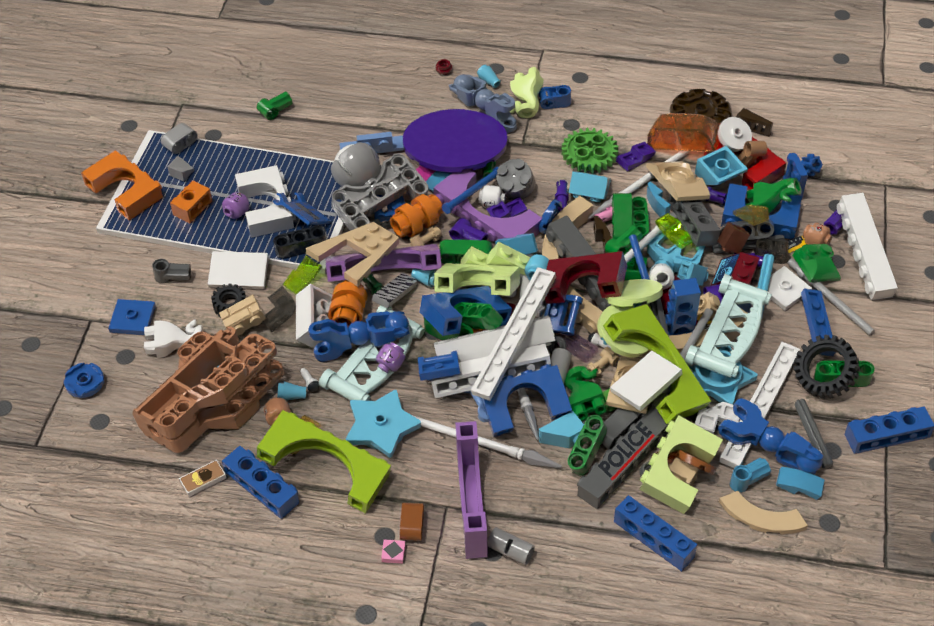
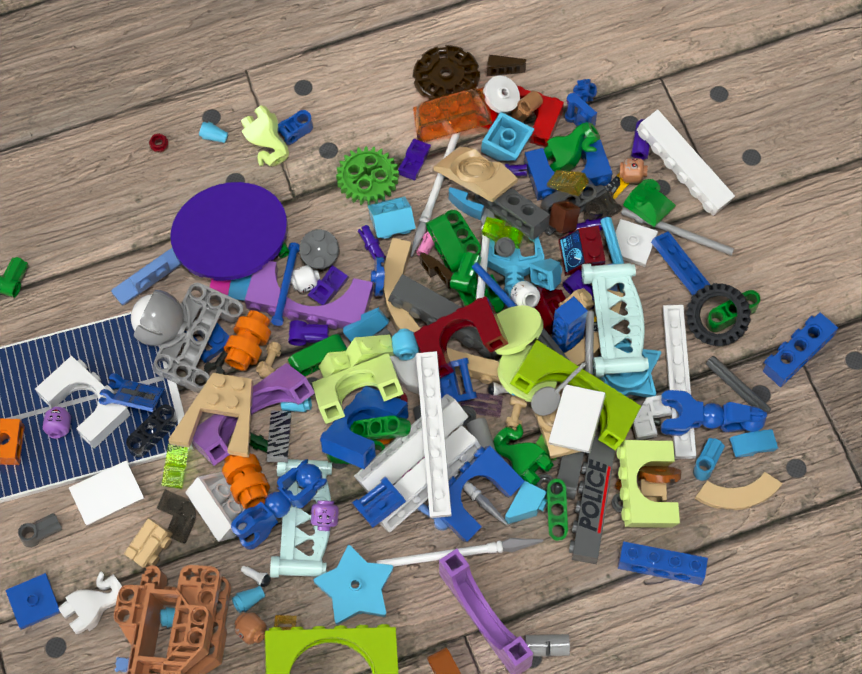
camera: 30 degrees left, 15 degrees up
(225, 293) = (111, 524): black tyre -> none
(494, 104) = (230, 166): sand blue piece -> none
(629, 354) = (548, 398): none -> light grey piece
(669, 240) = (505, 247): none -> dark grey plate

